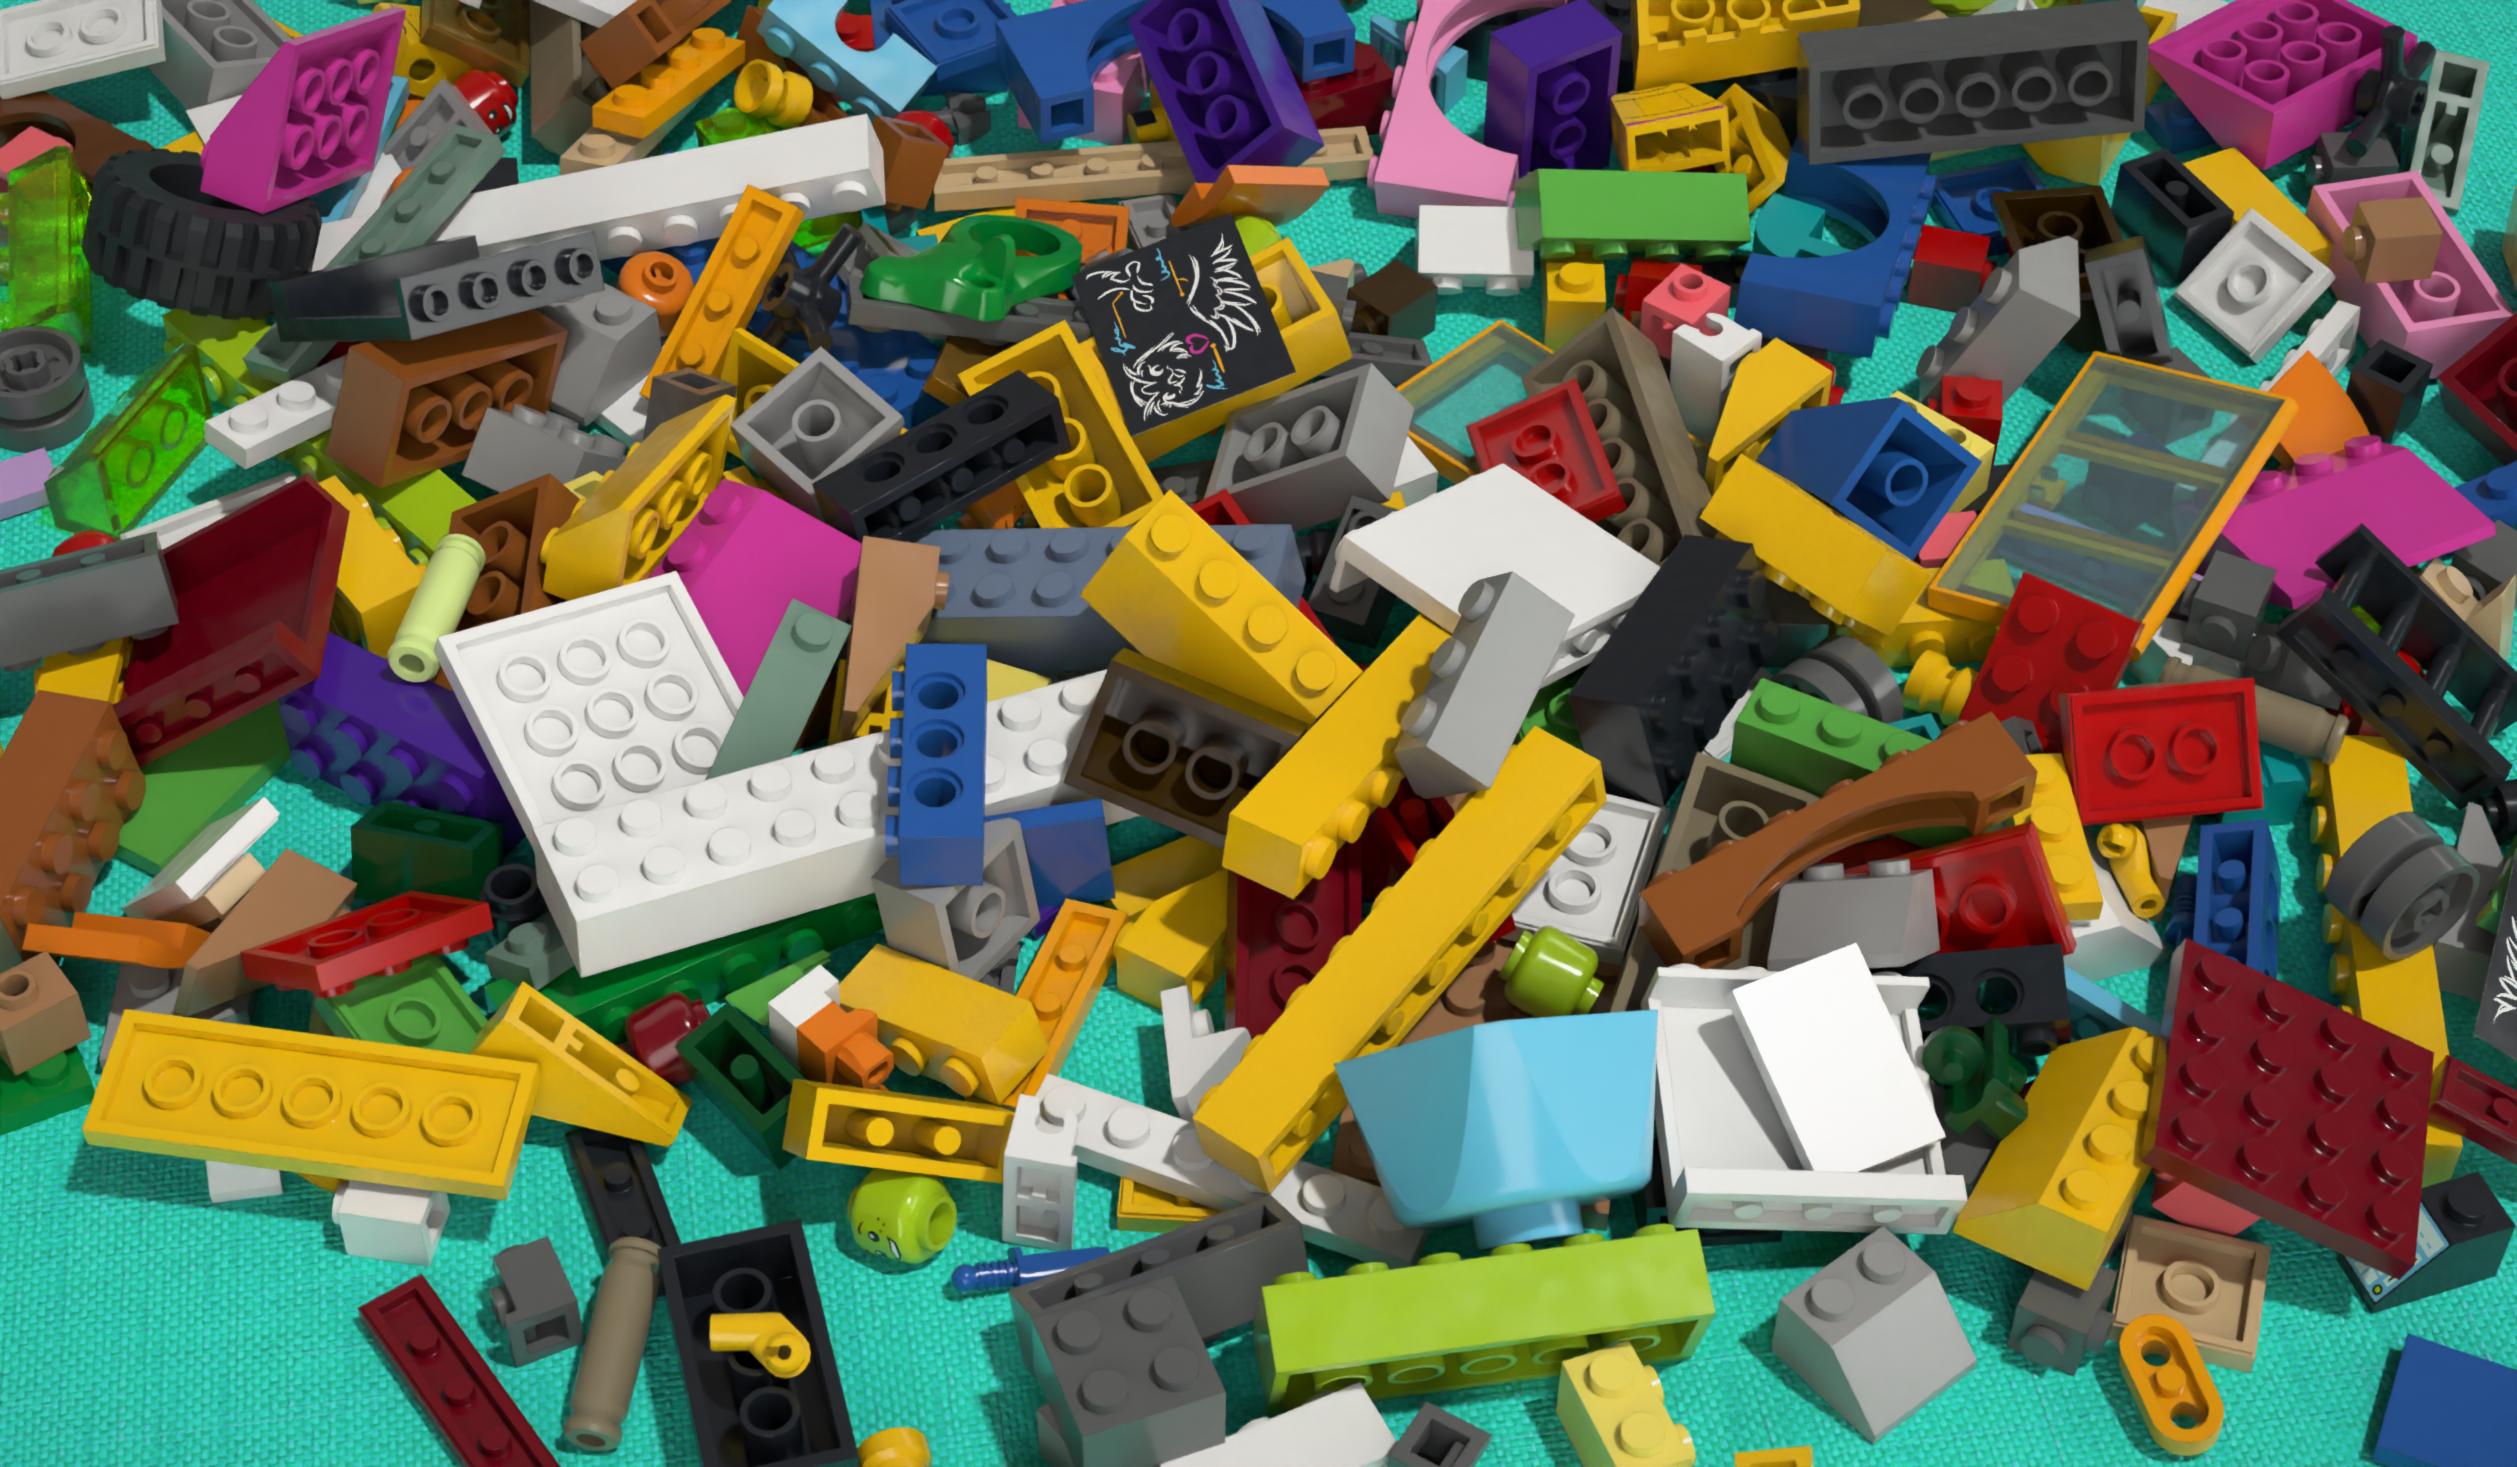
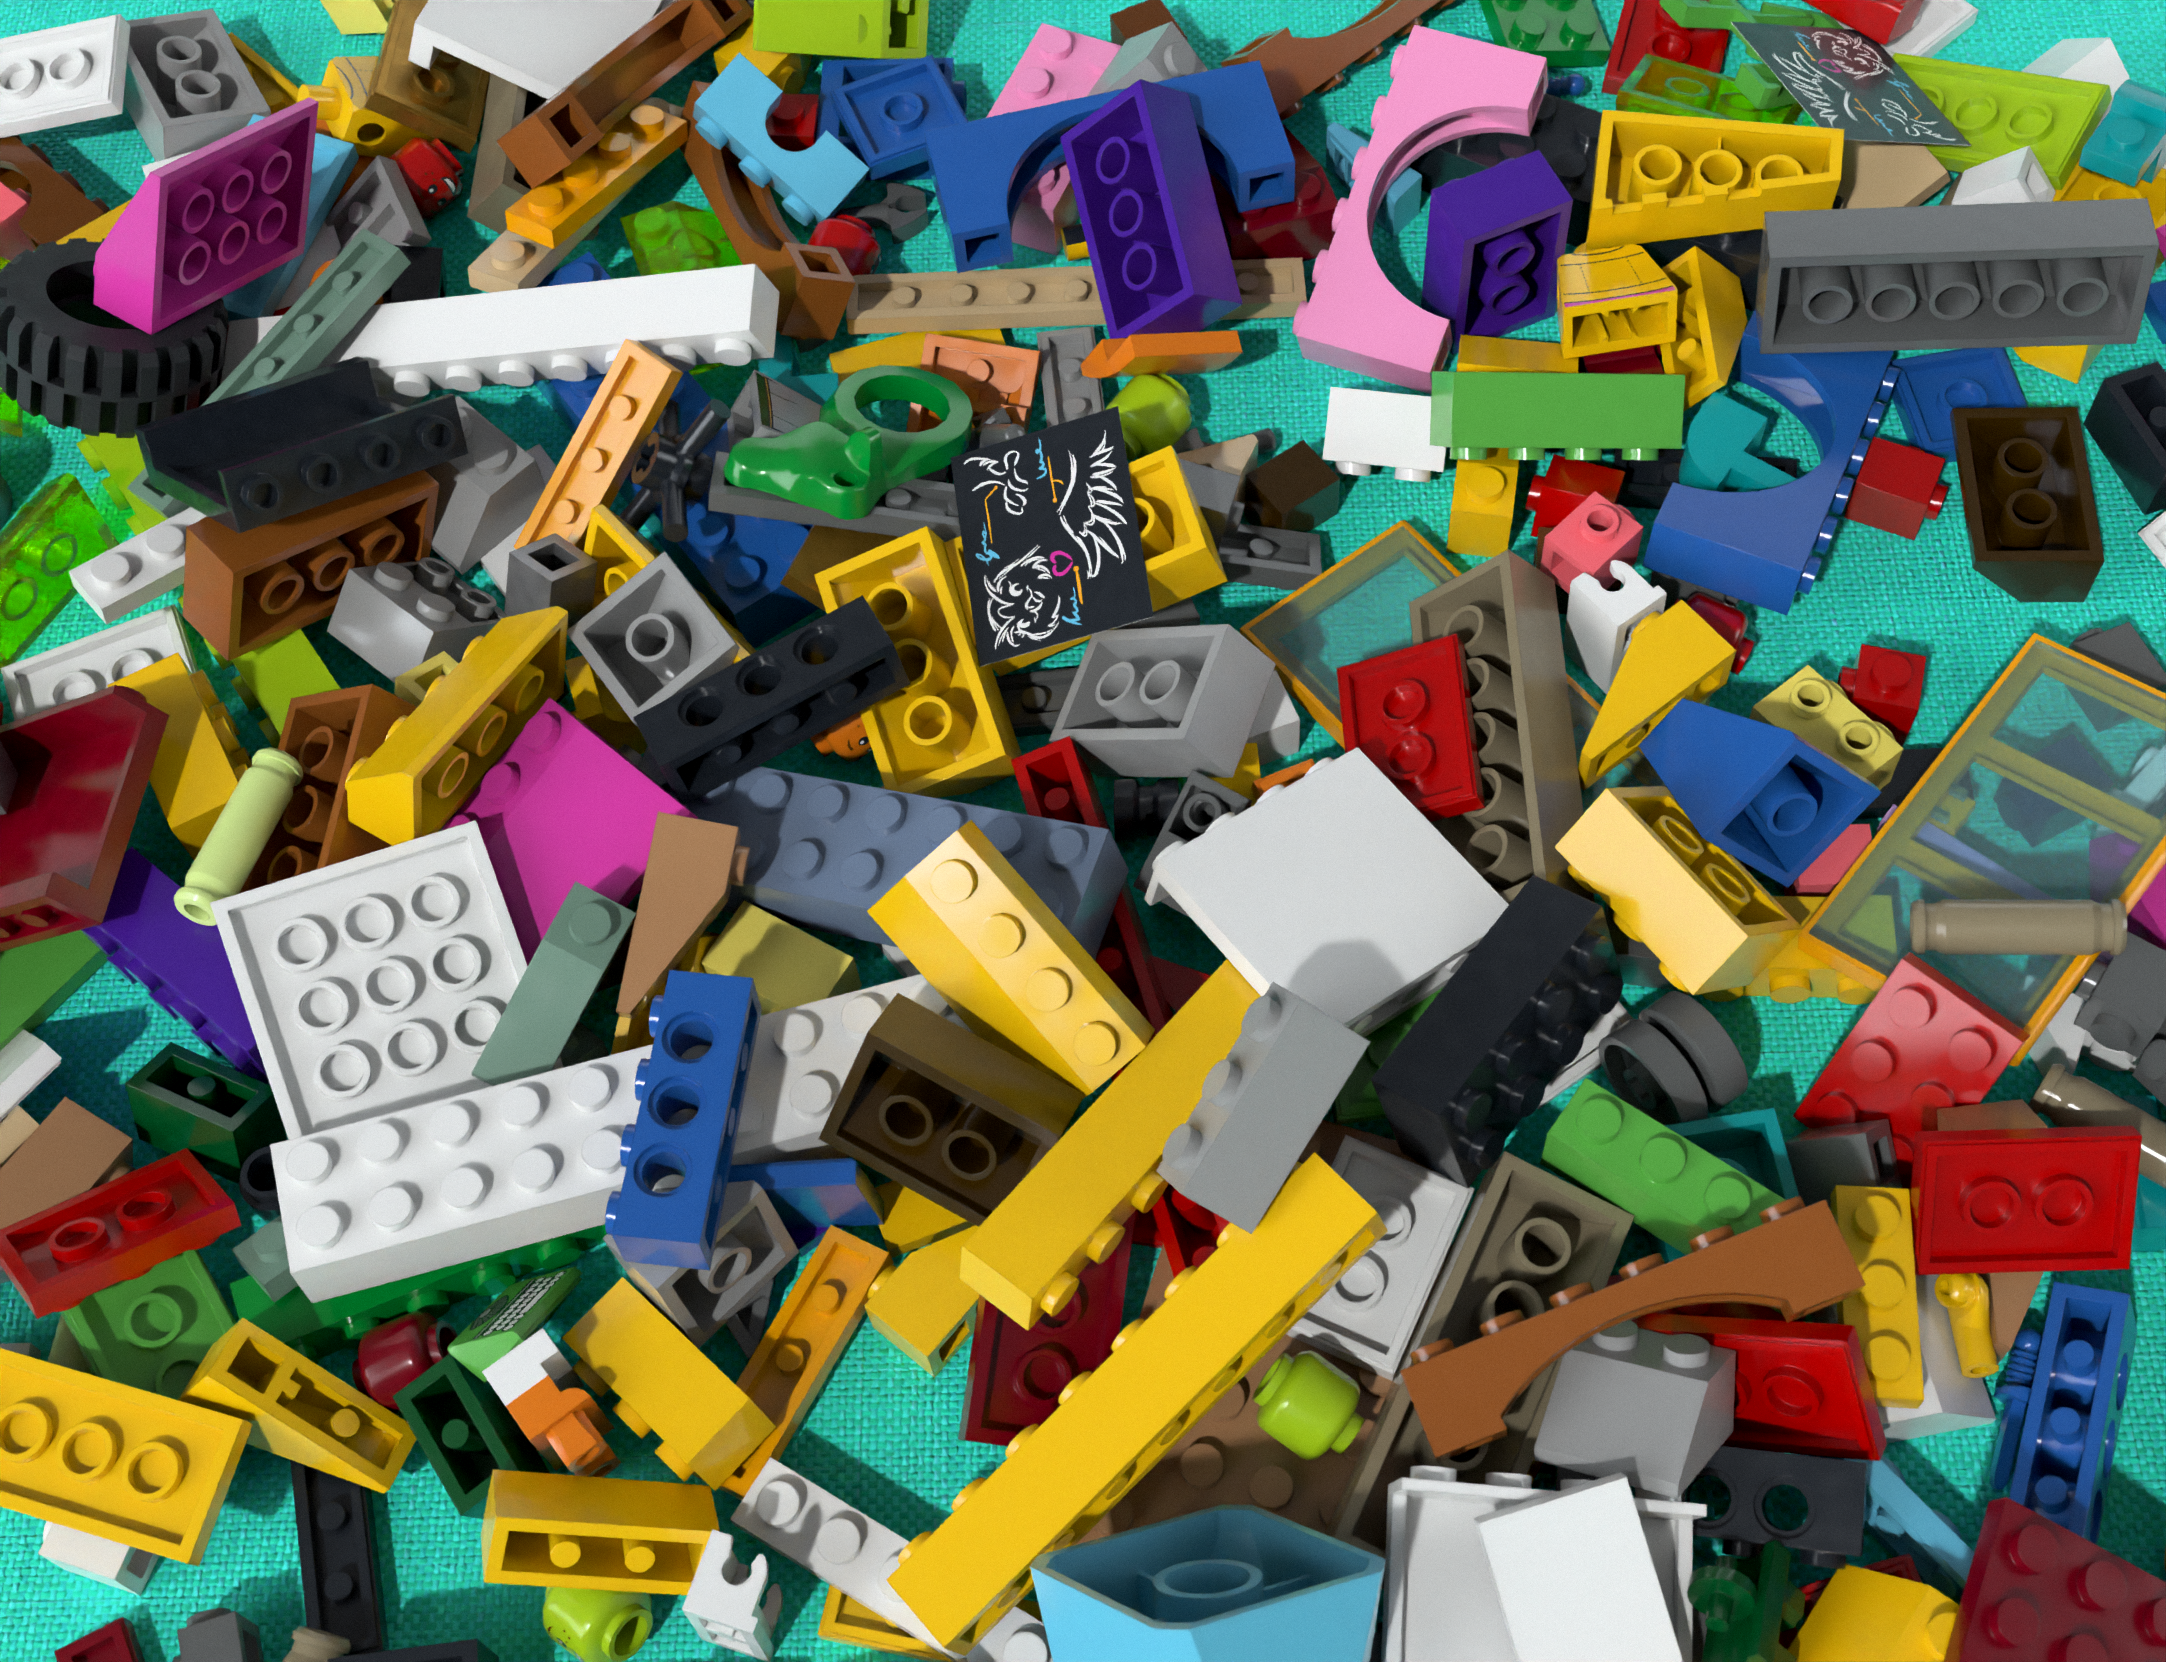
camera: 15 degrees right, 15 degrees up
(658, 282) = (542, 425): orange head -> none
(770, 93) = (696, 194): yellow wheel -> none
(1194, 1051) = (925, 1463): white slope -> none
(1938, 687) = (1798, 1046): yellow wheel -> none
(2011, 322) = (1947, 597): light grey slope -> none
(2120, 547) = (2018, 927): none -> dark tan axle
(2129, 301) = (2082, 579): black brick -> none

